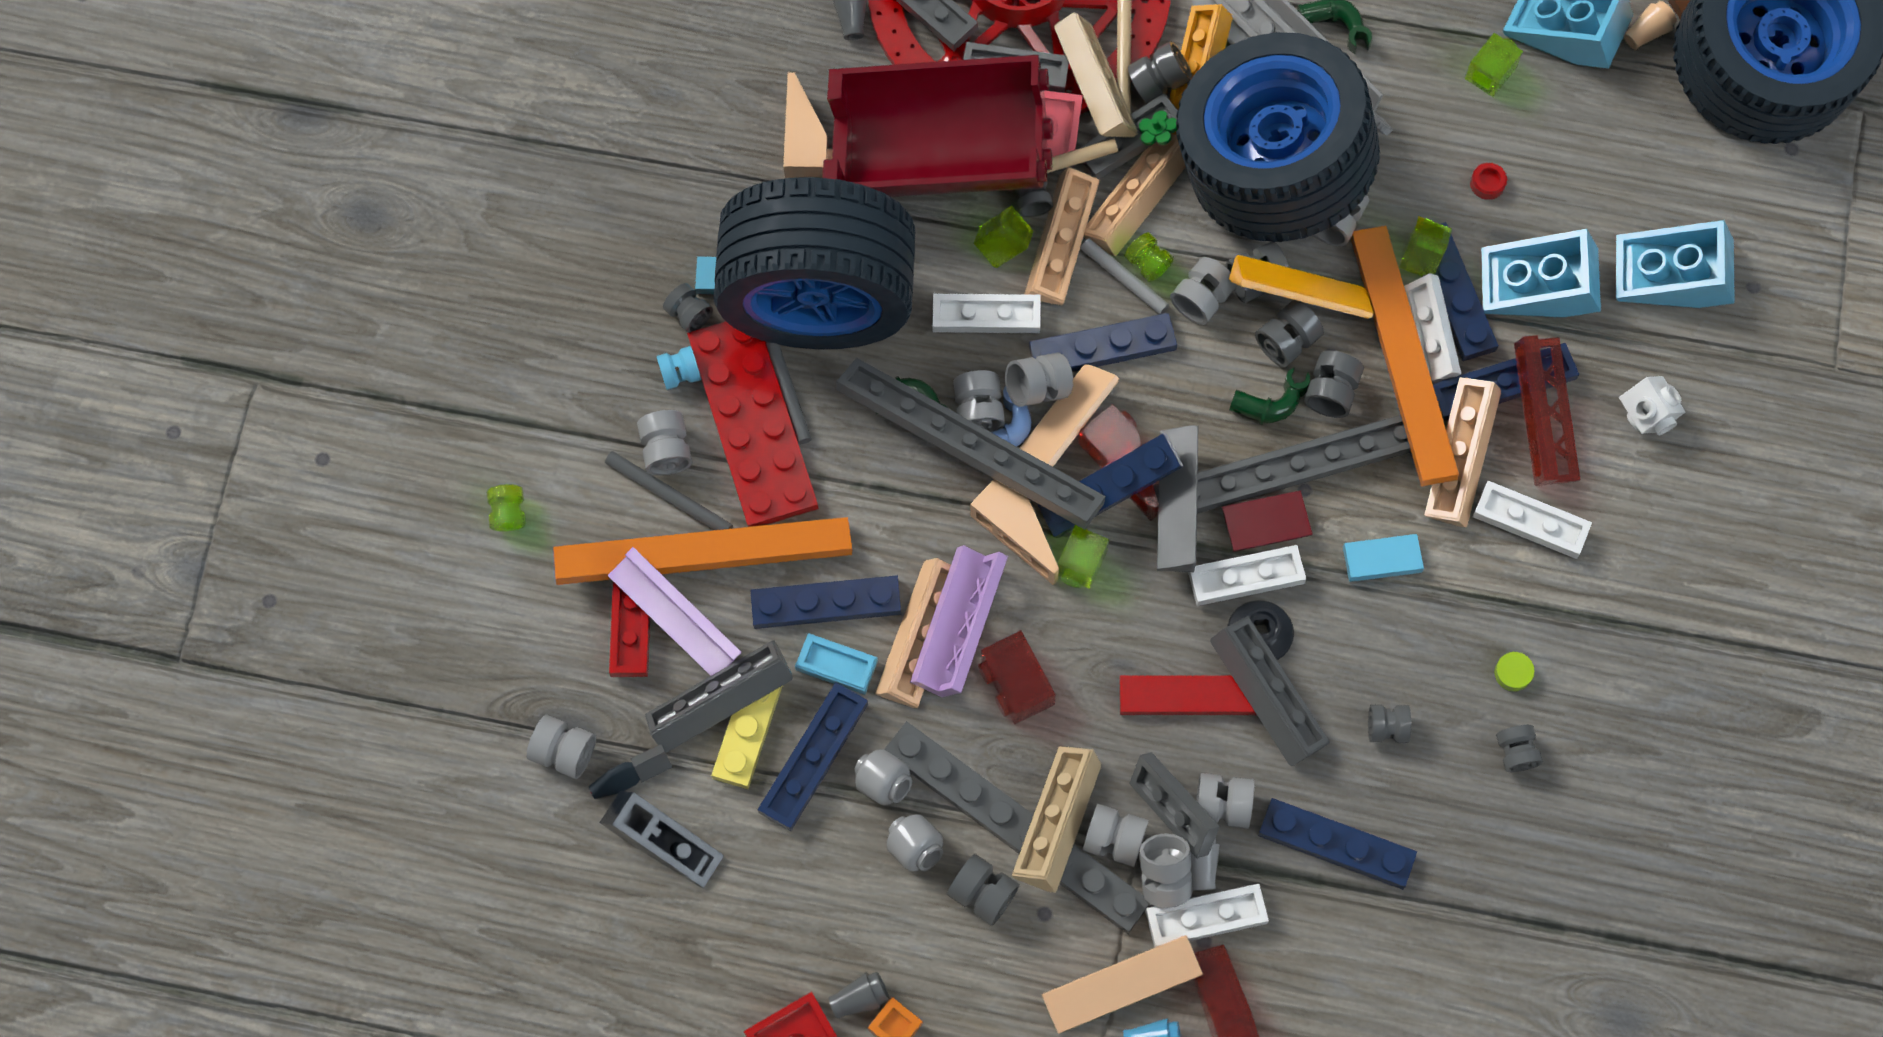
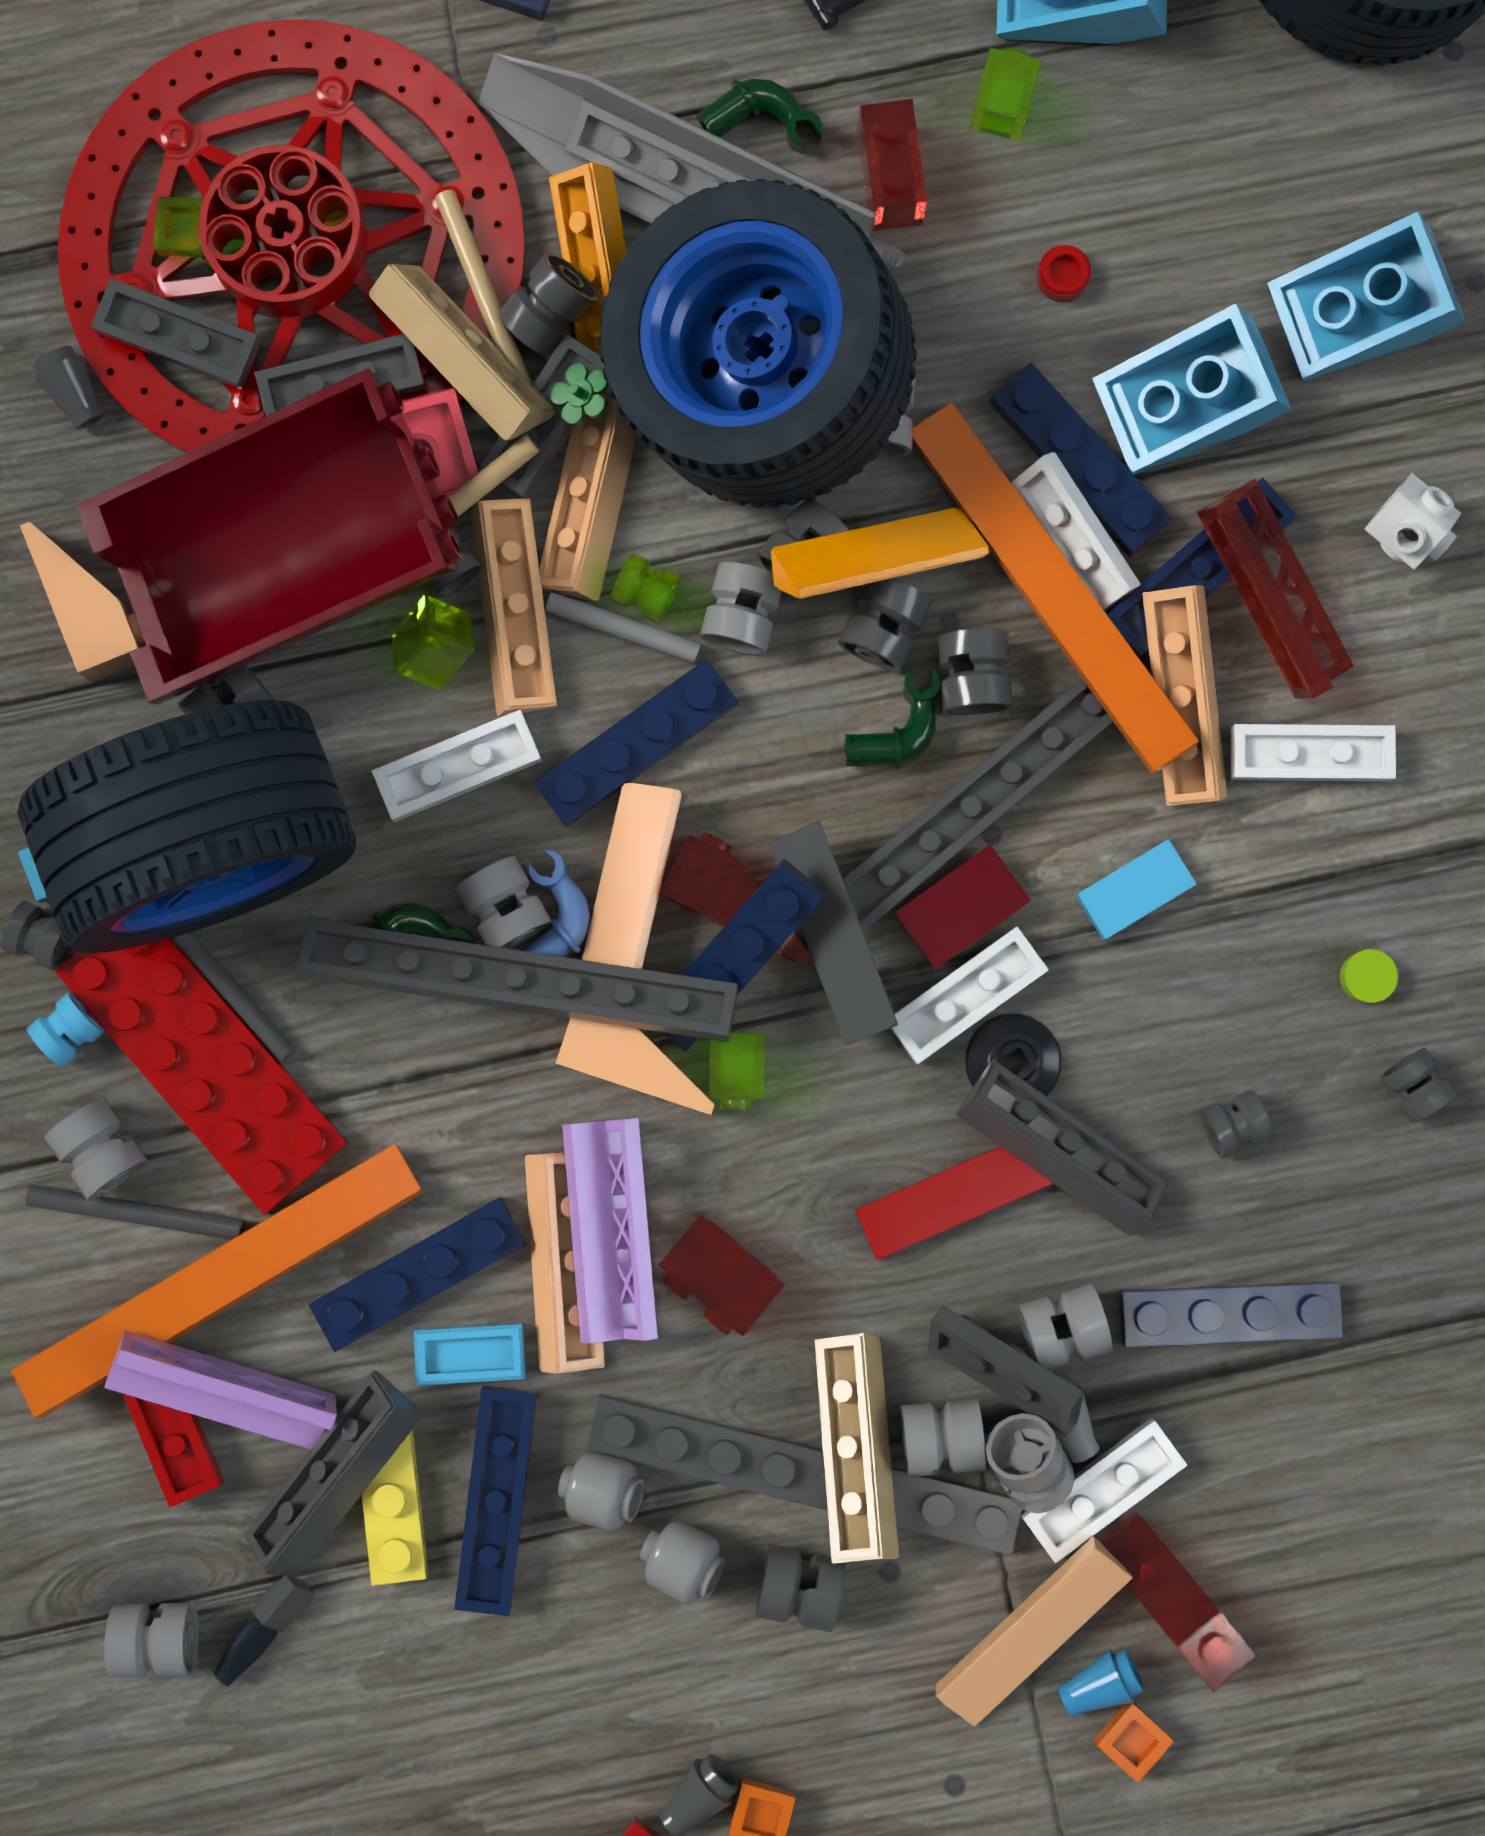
camera: 25 degrees left, 15 degrees up
(661, 837) = (341, 1703): black slope -> none
(1038, 379) = (567, 850): light grey wheel -> none
(1405, 77) = (891, 164): none -> clear red brick
(1425, 247) = (1020, 417): clear neon green panel -> none

